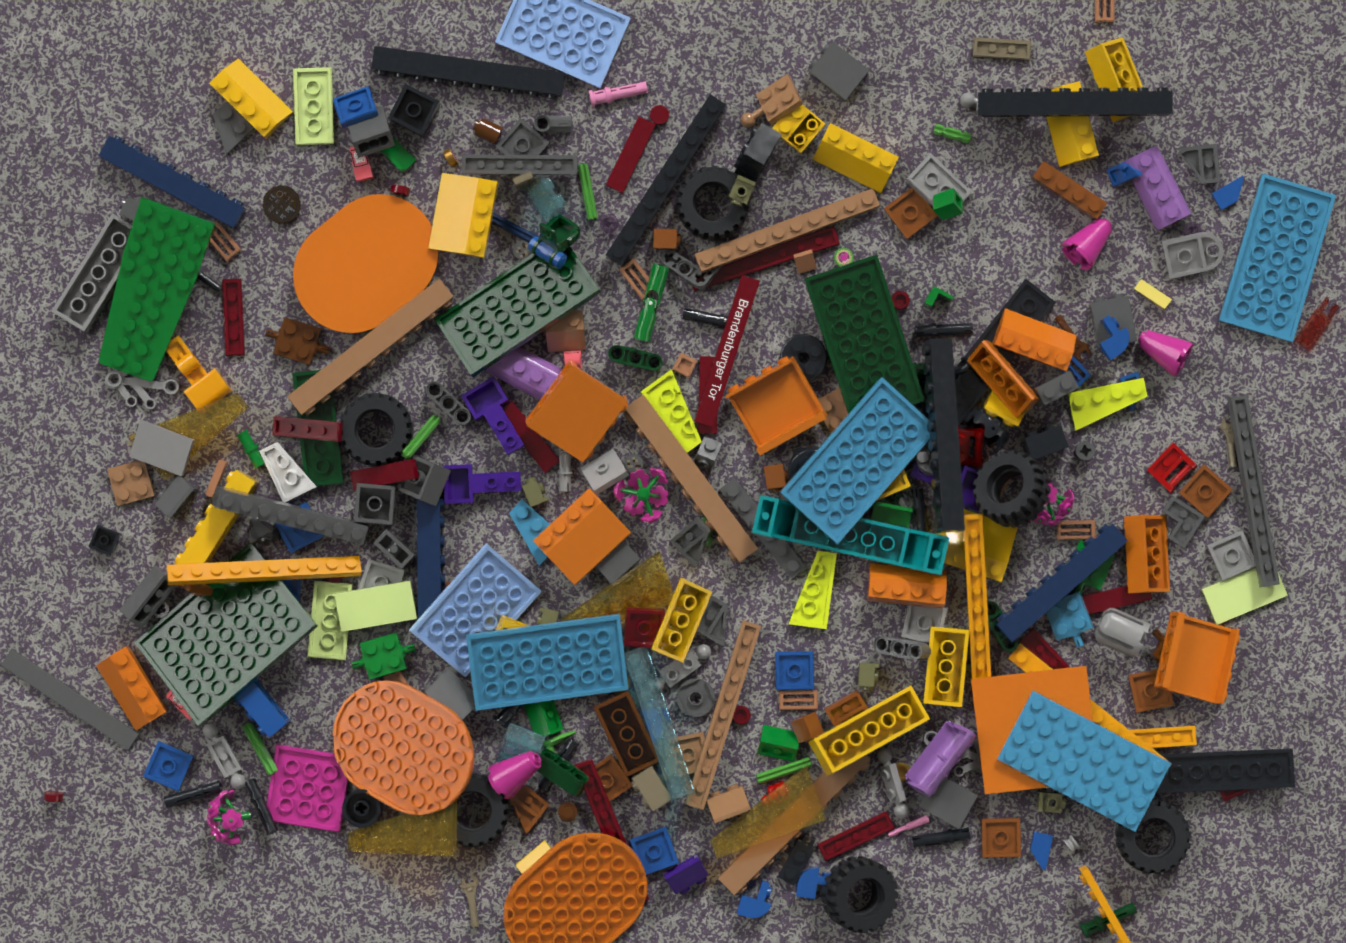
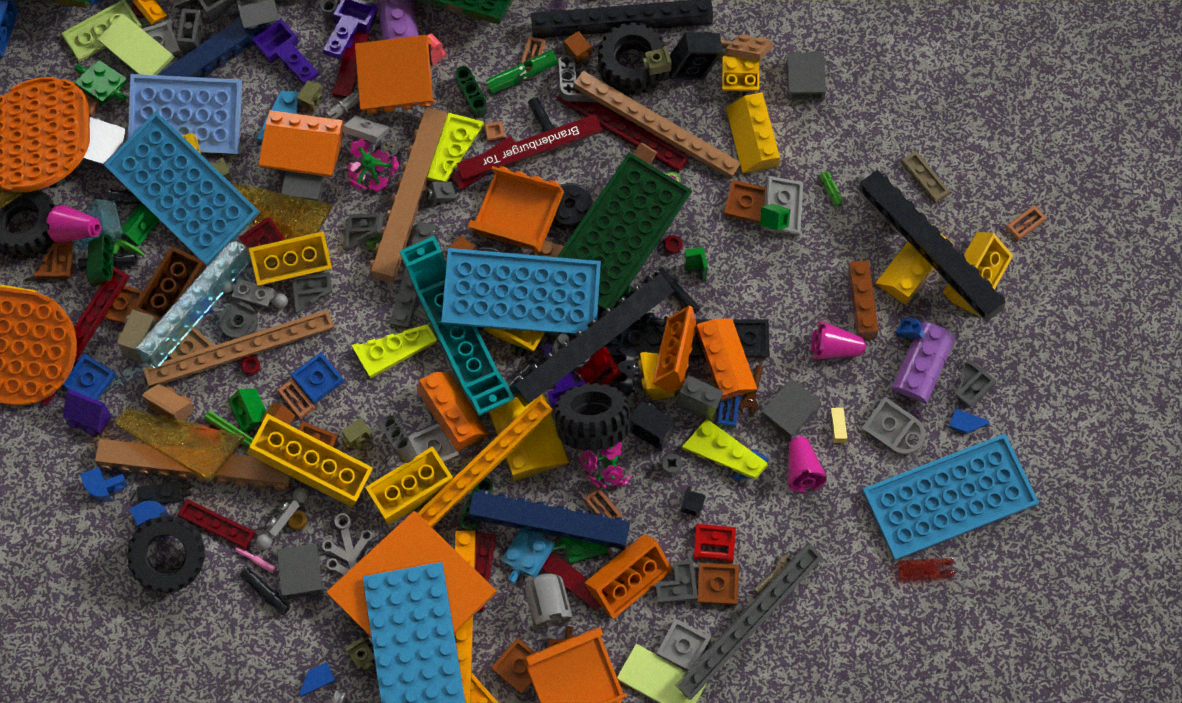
camera: 50 degrees right, 20 degrees down
(567, 333) = (453, 31): medium nougat slope -> none
(568, 811) = (73, 292): reddish brown brick -> none
(891, 514) = (502, 358): green panel -> none
(939, 758) = (329, 532): medium lavender container -> none
(1001, 837) = (301, 638): dark orange plate -> none
(1117, 342) = (775, 416): blue brick -> none
(1126, 458) = (692, 502): none -> black panel

